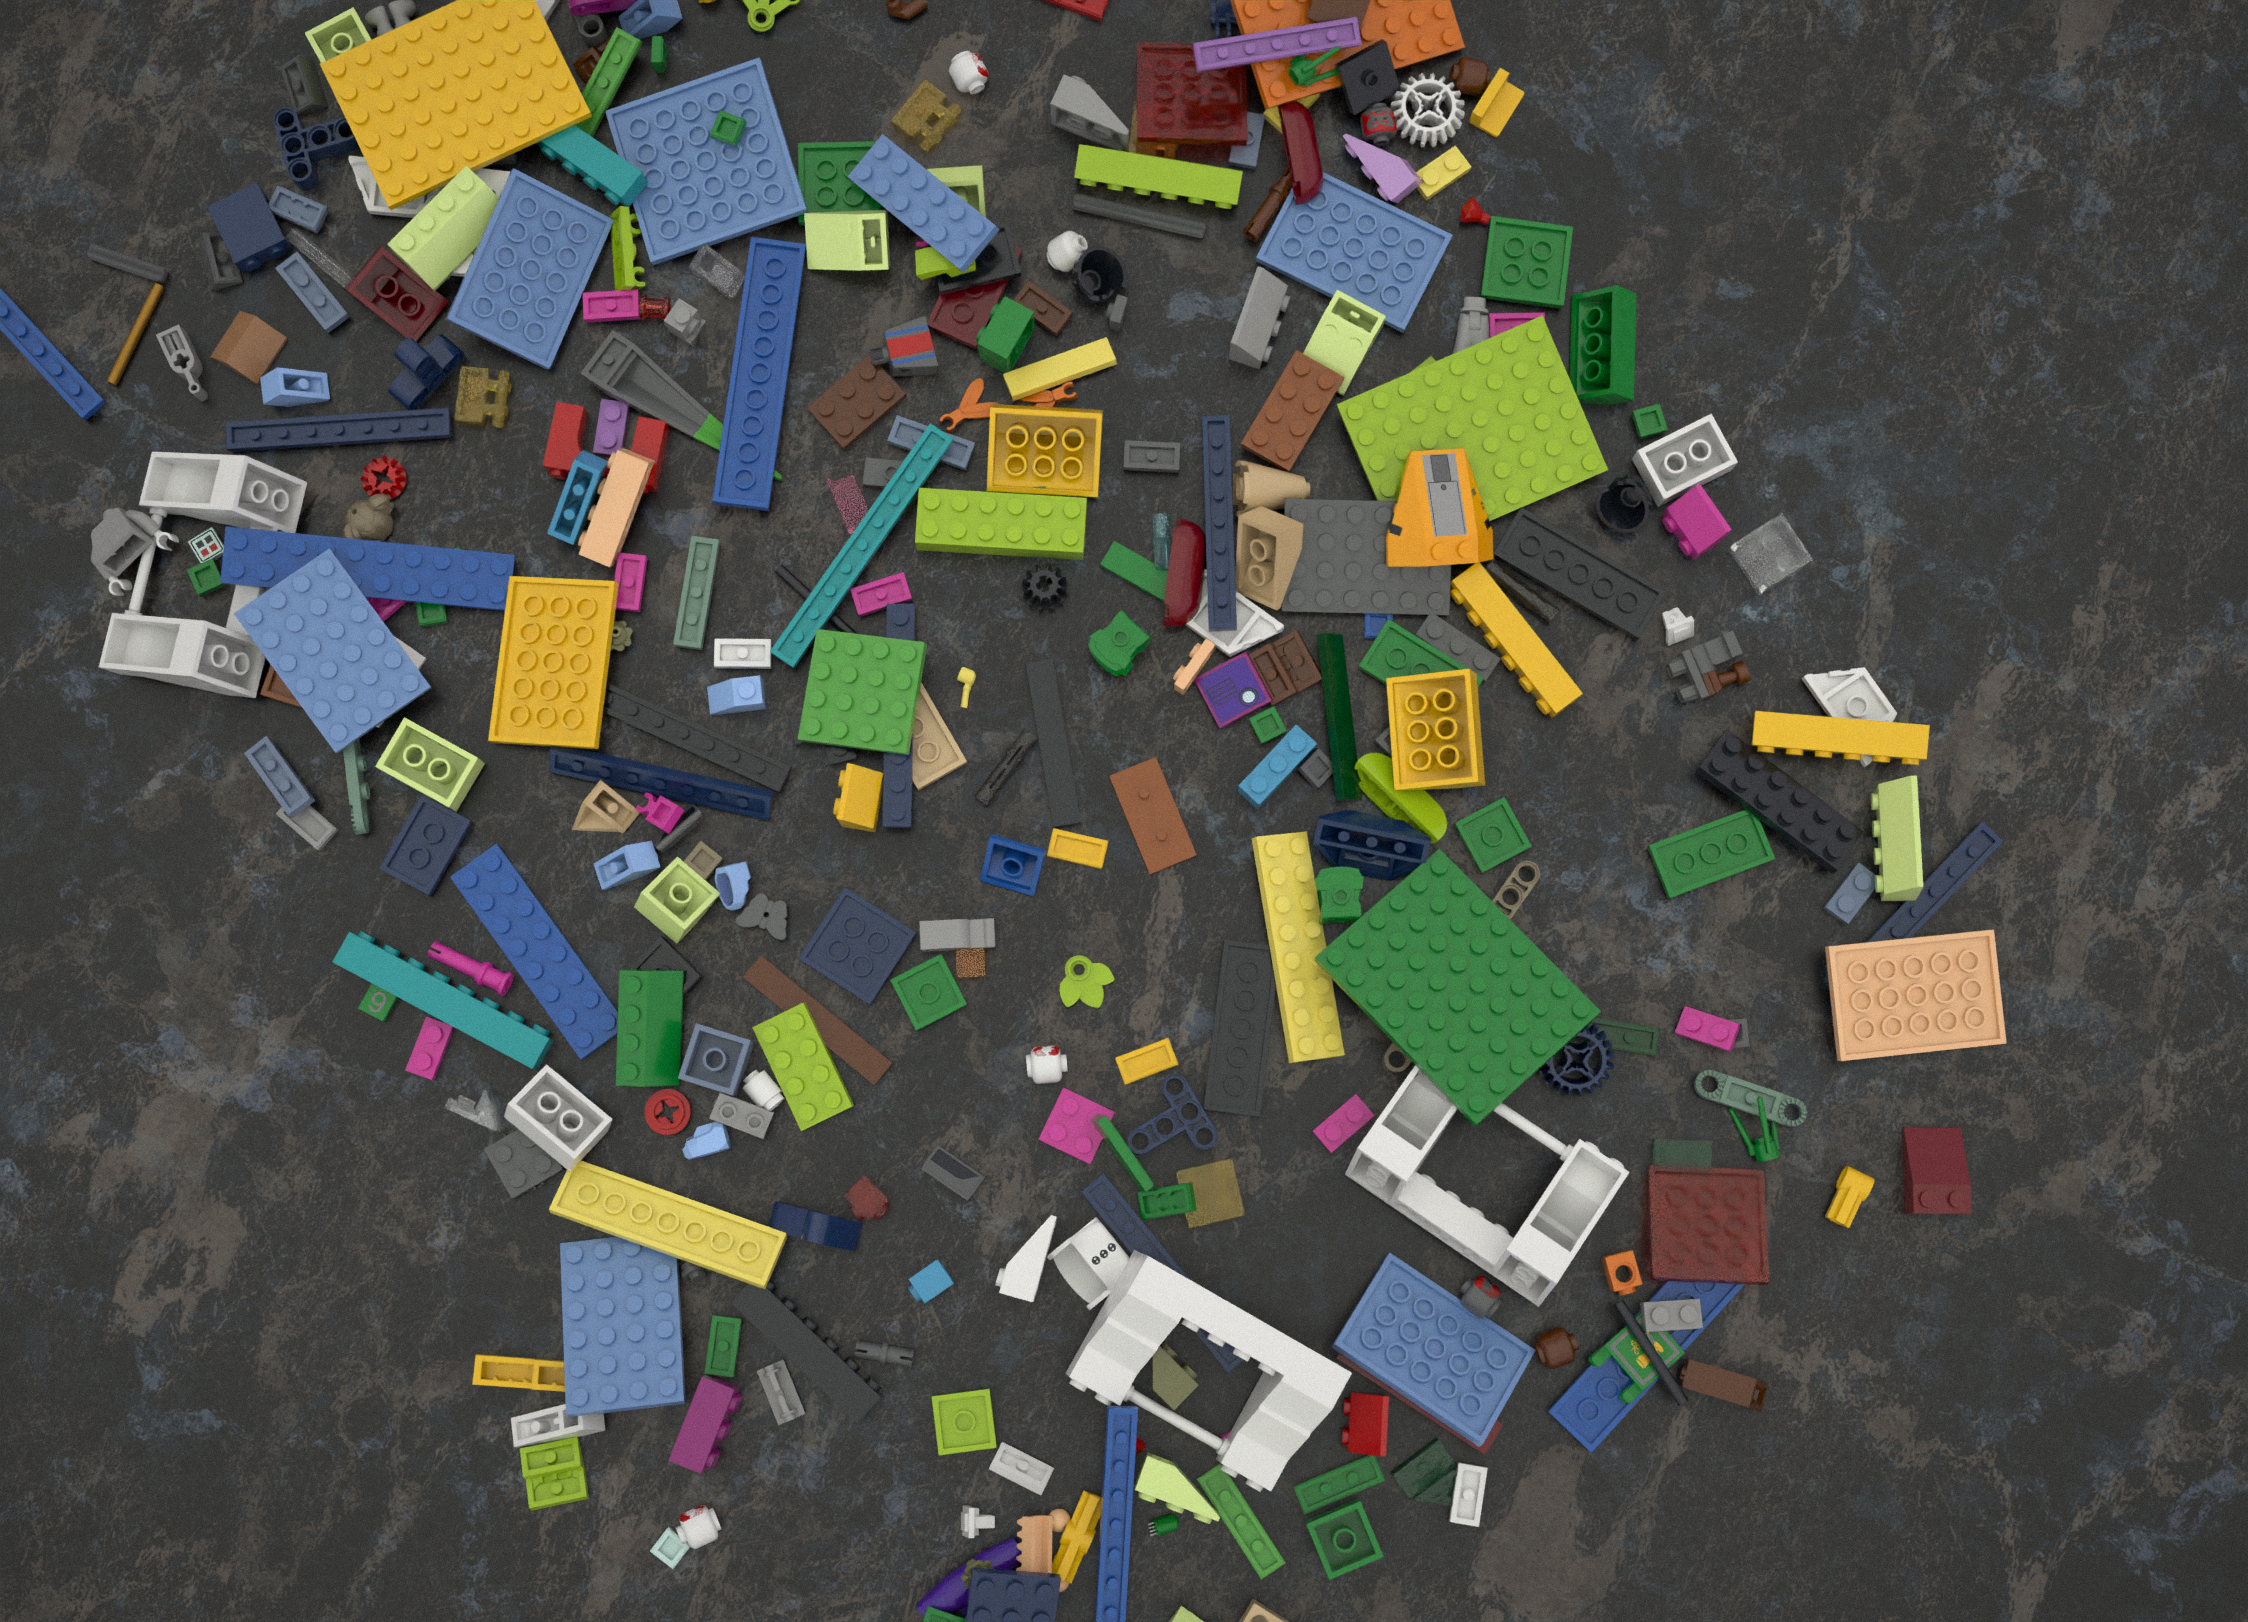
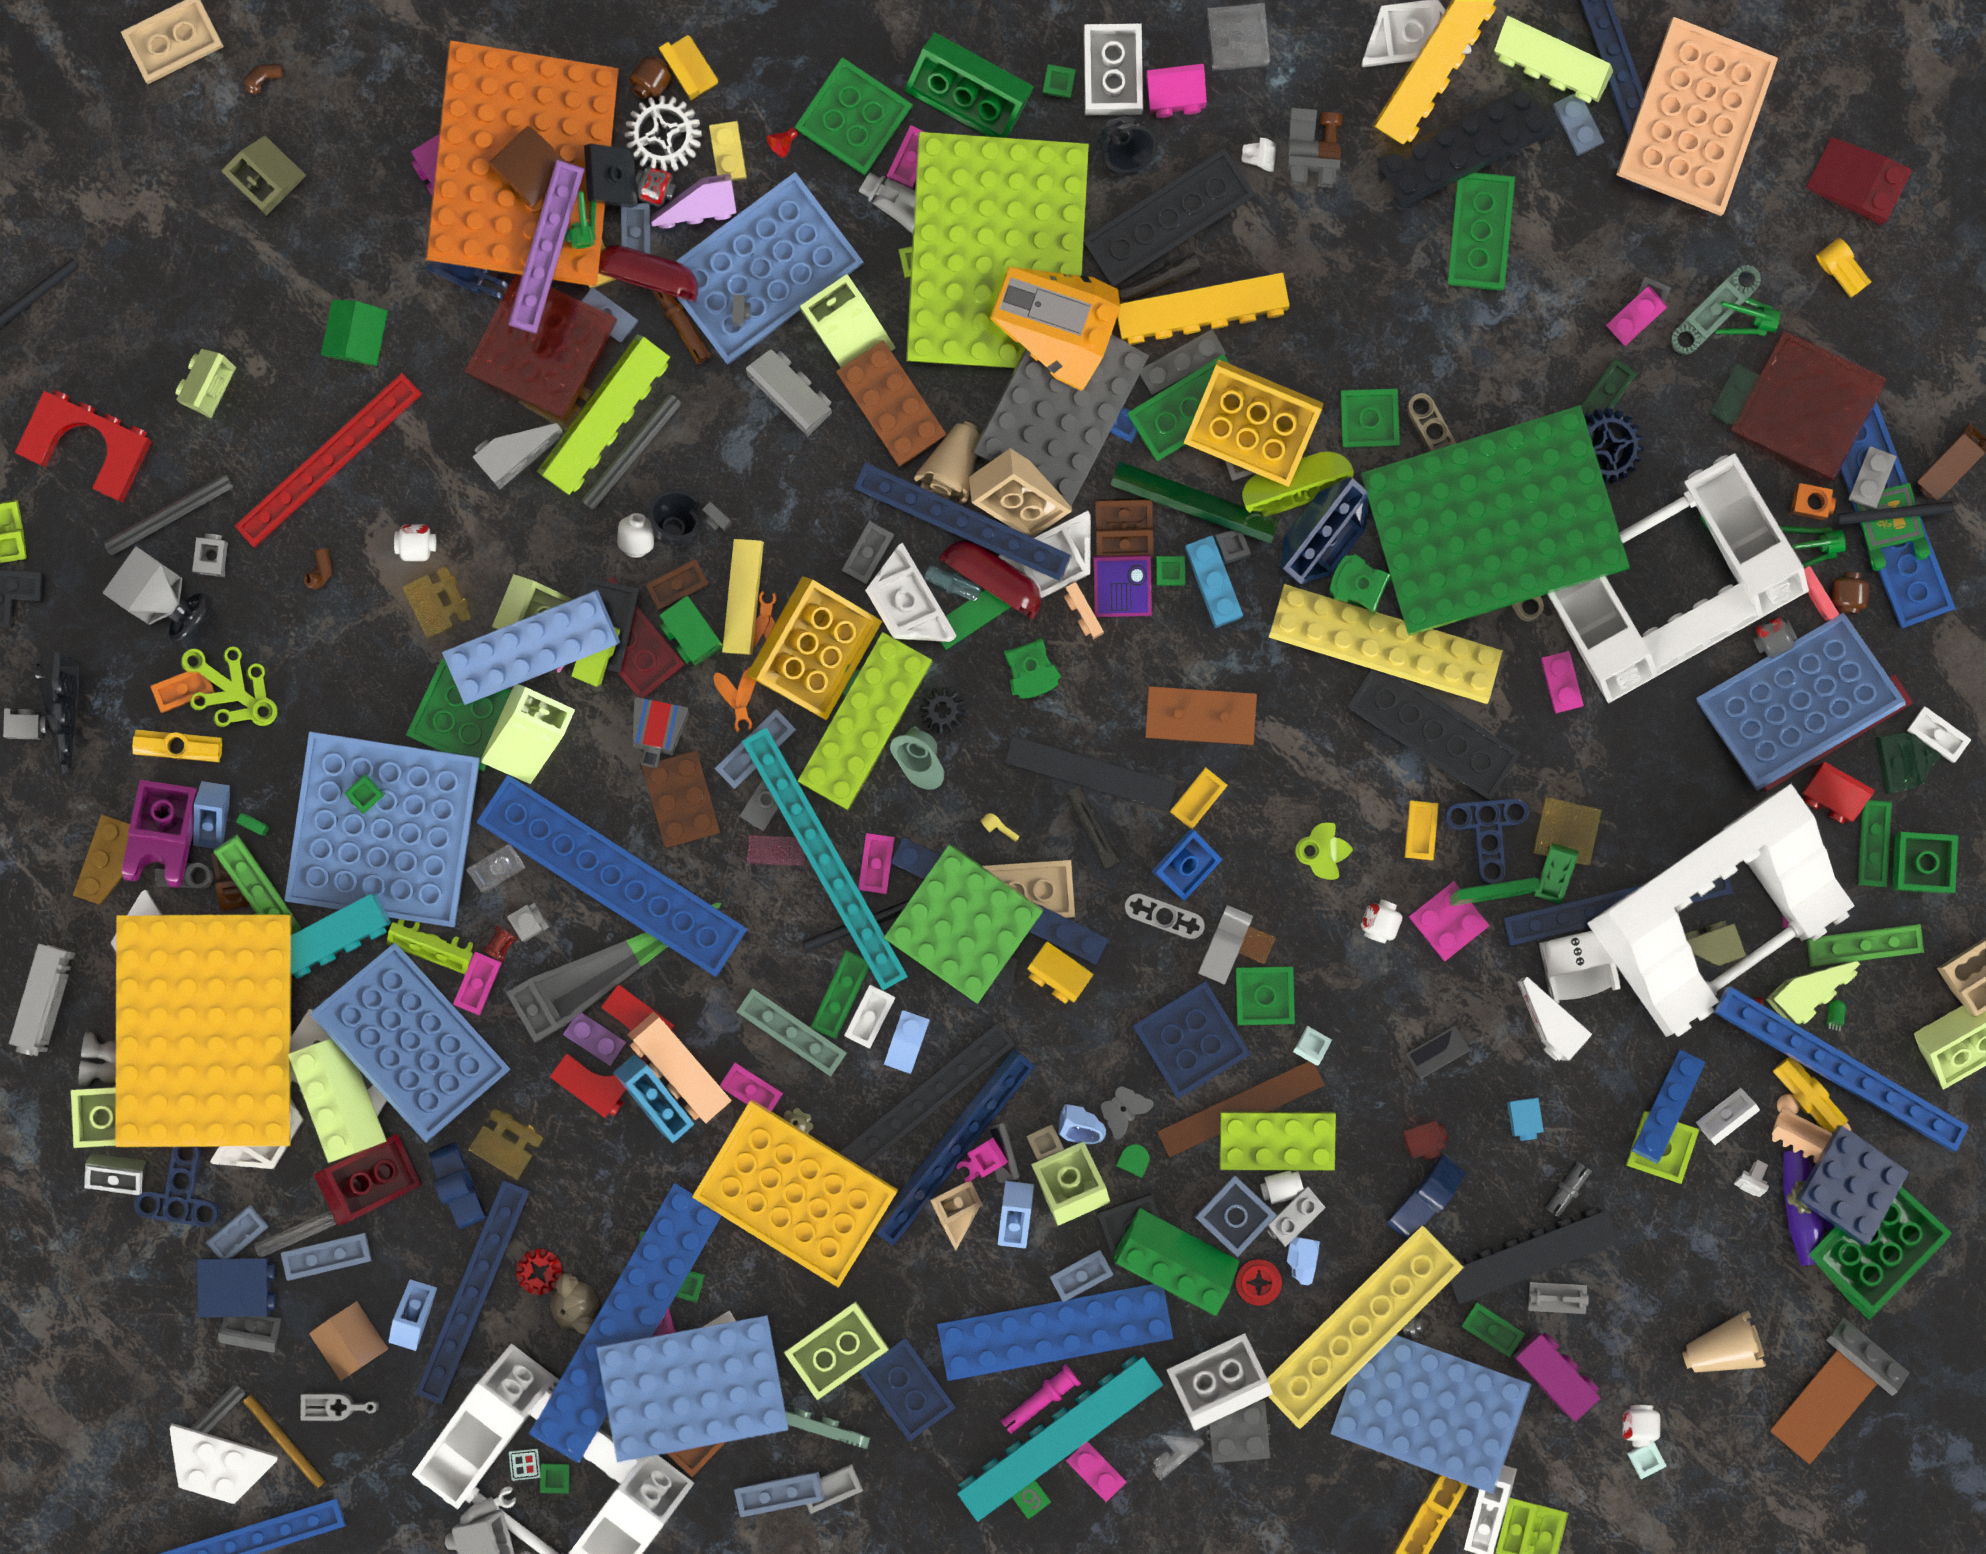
camera: 65 degrees left, 5 degrees up
(87, 284) = (216, 1464): none -> white wing
(599, 950) = (1081, 1275): none -> sand blue plate
(726, 947) = (1134, 1159): none -> green tile
(749, 620) = (840, 994): none -> green tile
(807, 1572) = (1726, 1347): none -> tan cone
(904, 1056) = (1312, 1045): none -> light aqua tile
(947, 849) = (1181, 929): none -> light grey beam
(993, 583) = (918, 758): none -> sand green piece
(1003, 1408) = (1668, 1106): none -> blue plate
(1124, 508) = (907, 601): none -> white wing
(1307, 243) = (741, 311): none -> dark grey plate
(1334, 125) = (636, 227): none -> sand blue plate
(1540, 1318) = (1819, 596): none -> coral tile
(1593, 1305) = (1829, 542): none -> green plant

